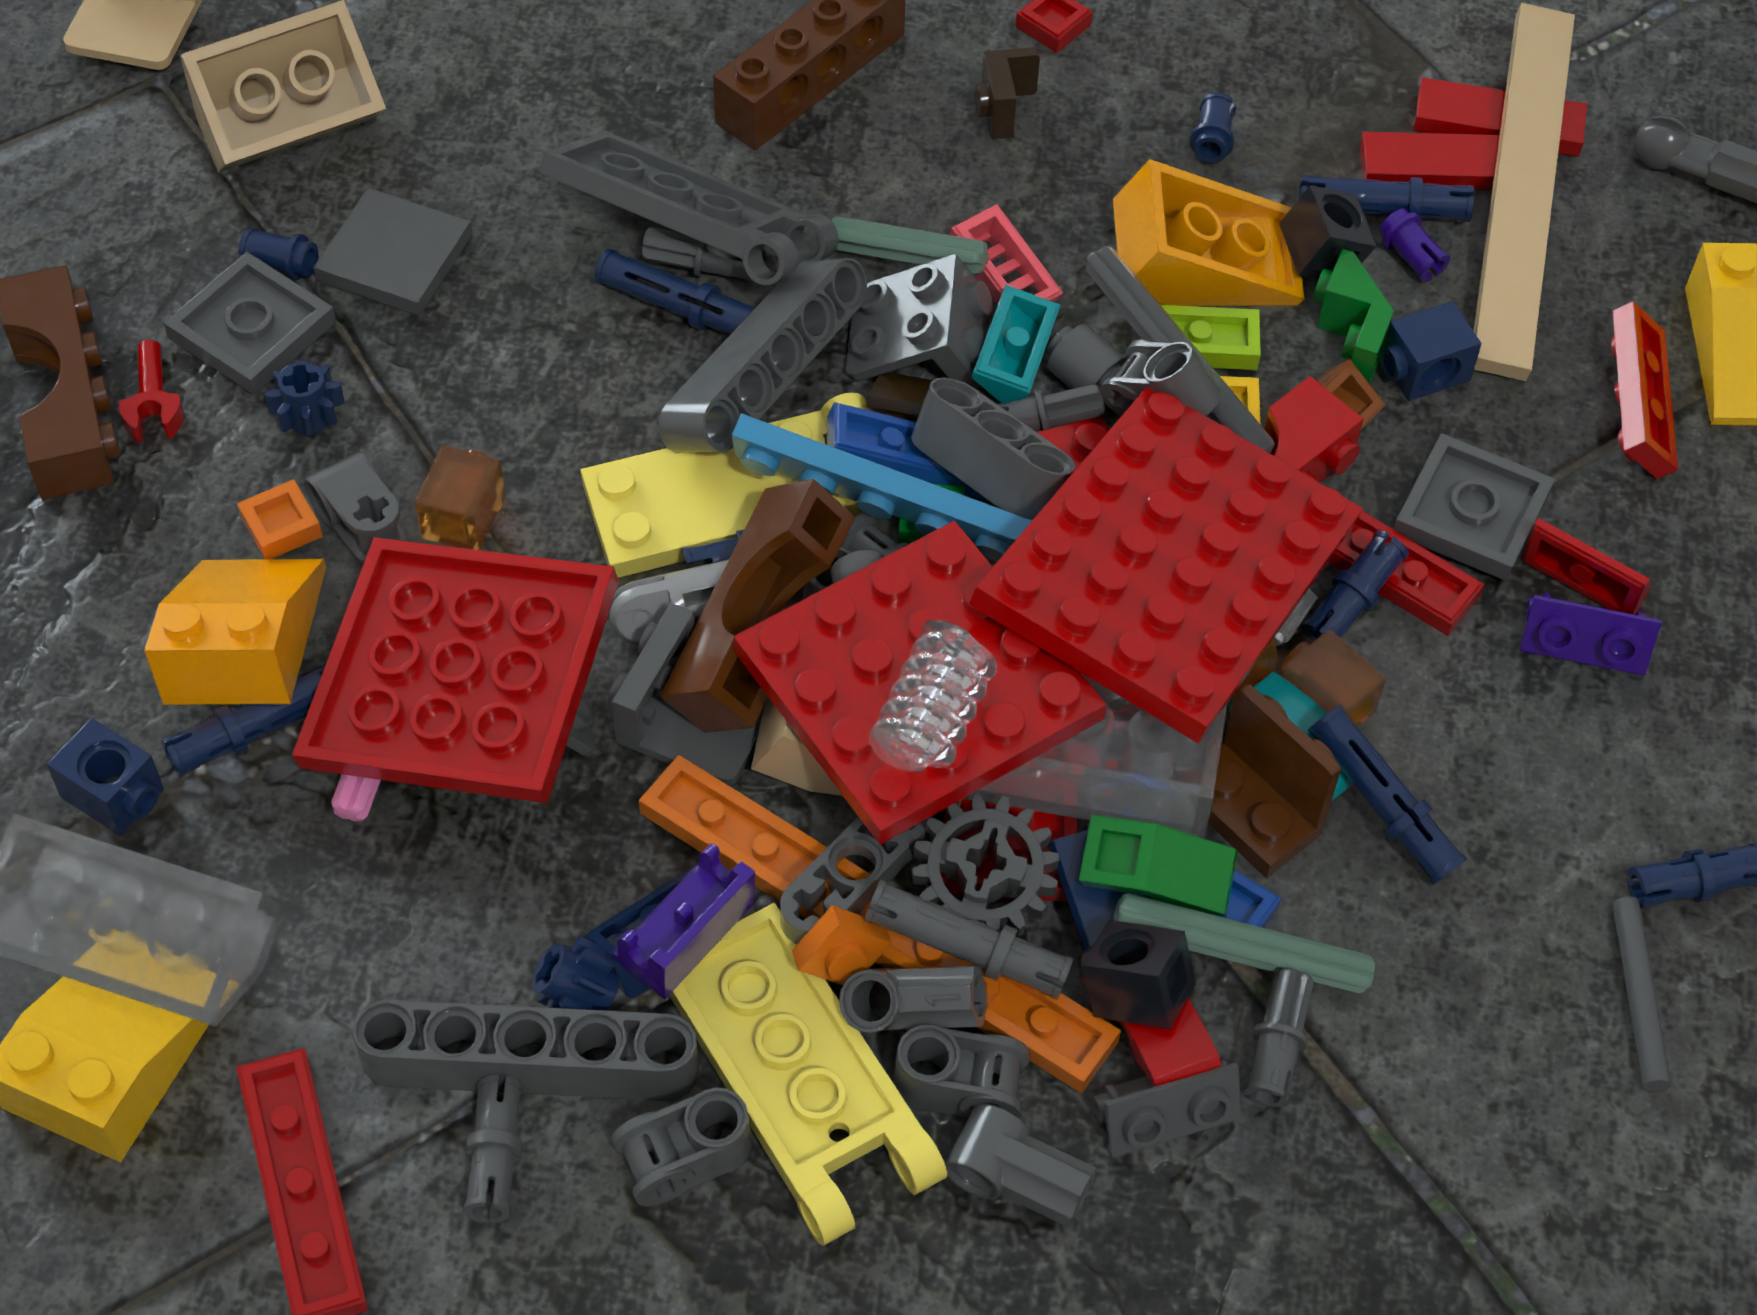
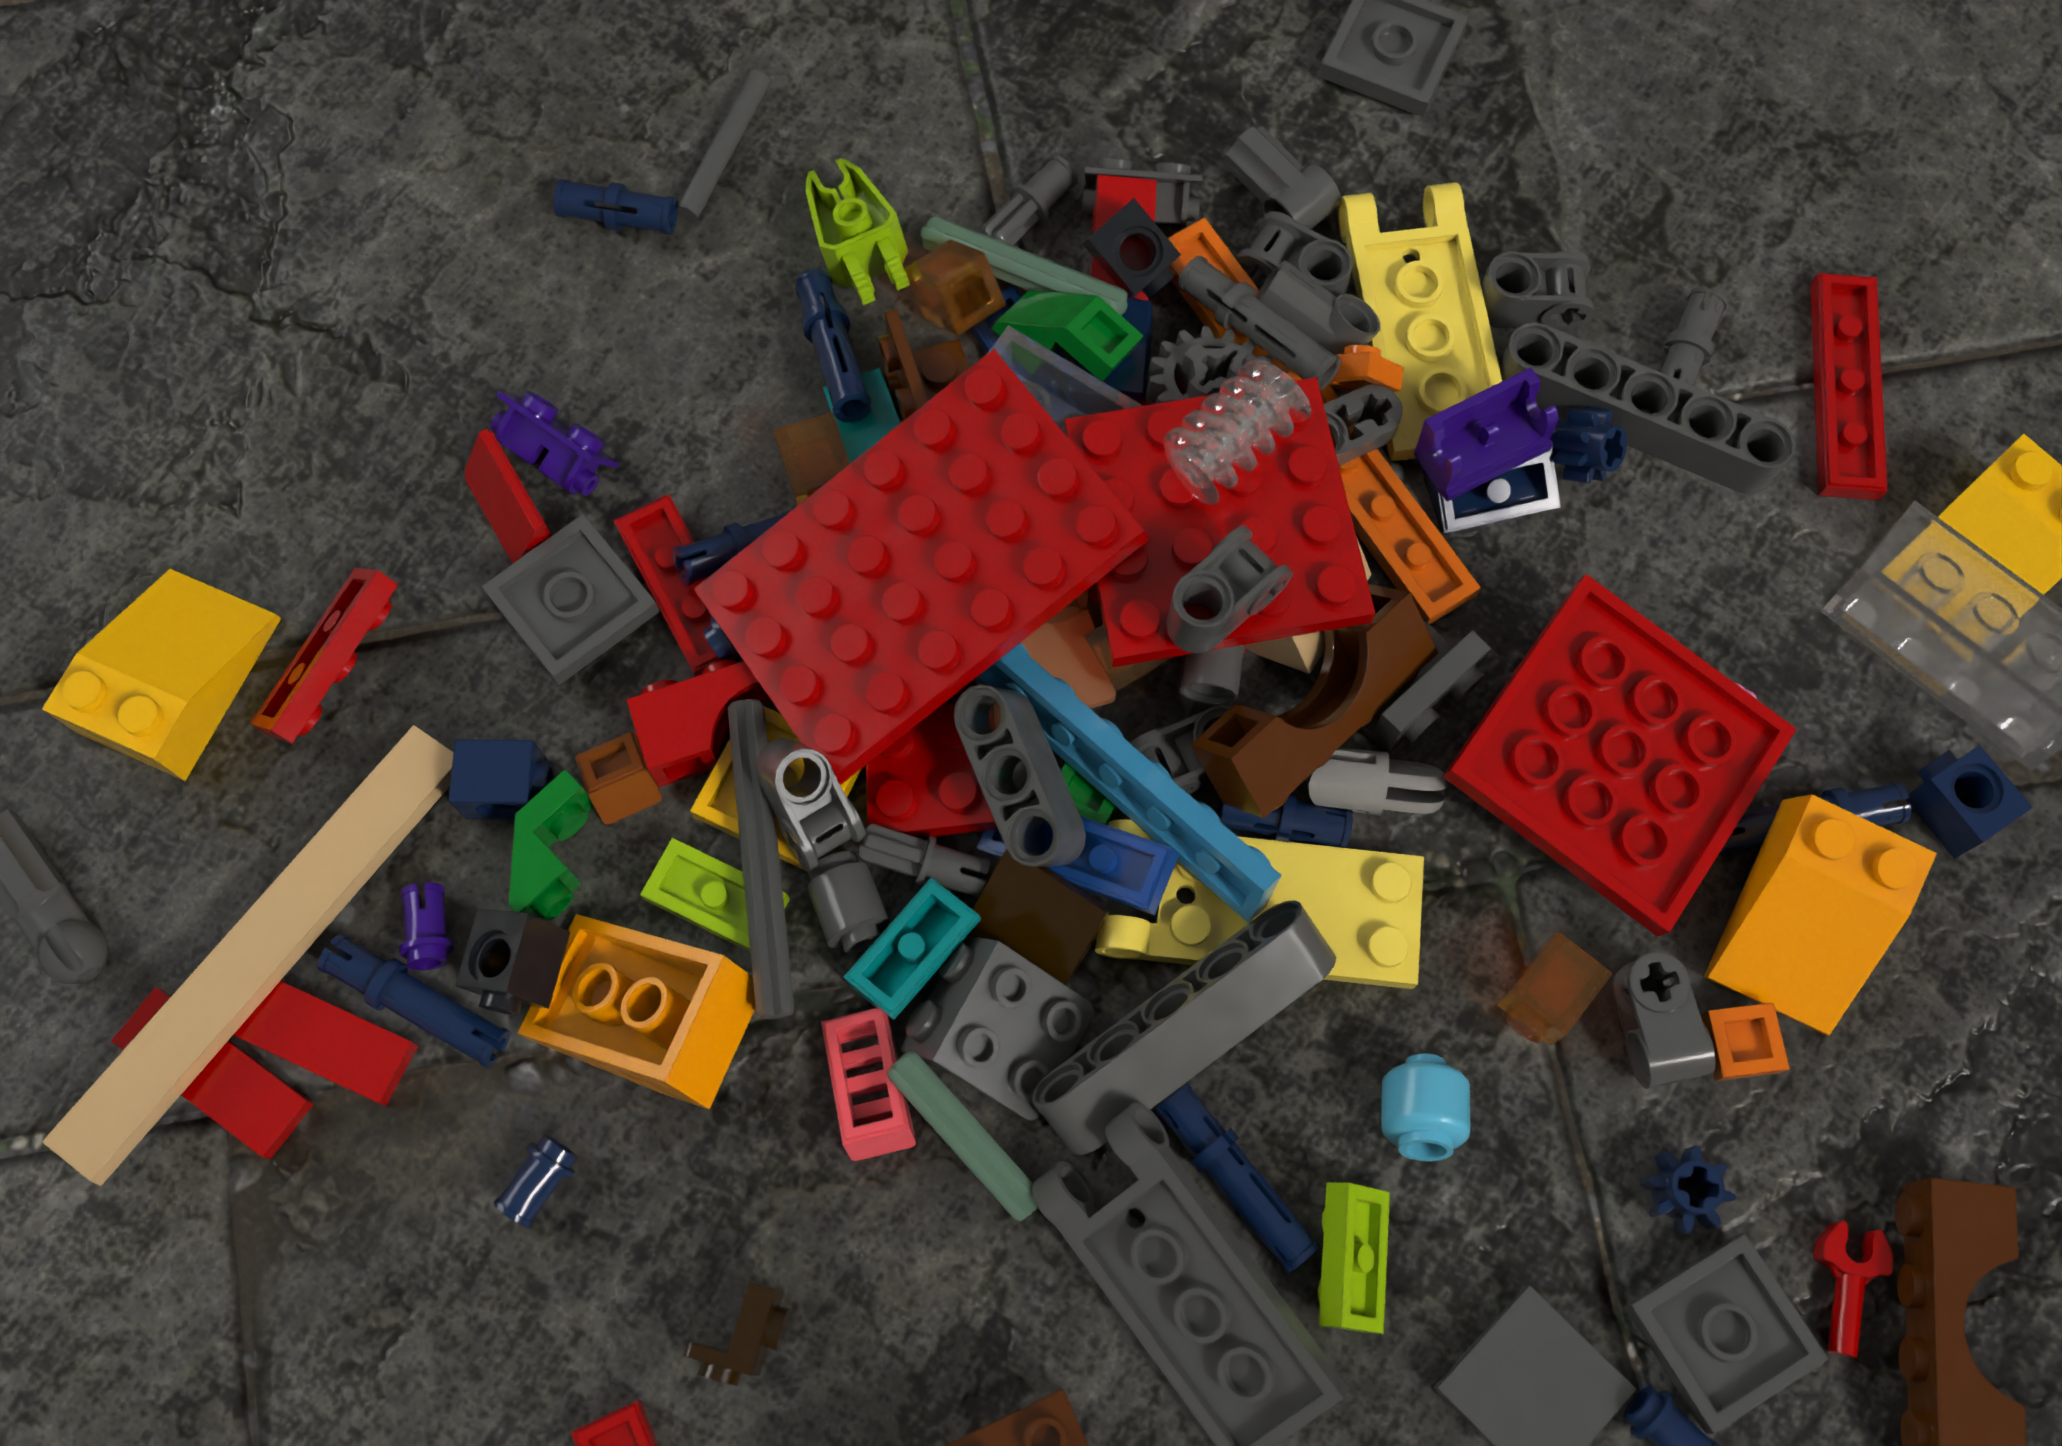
camera: 155 degrees left, 15 degrees up
(542, 380) = (1425, 1108): none -> medium azure head
(564, 272) = (1354, 1258): none -> lime plate
(876, 573) = (1230, 582): none -> dark grey piece
(1302, 890) = (955, 286): none -> clear orange brick
(1438, 919) = (857, 234): none -> lime hinge

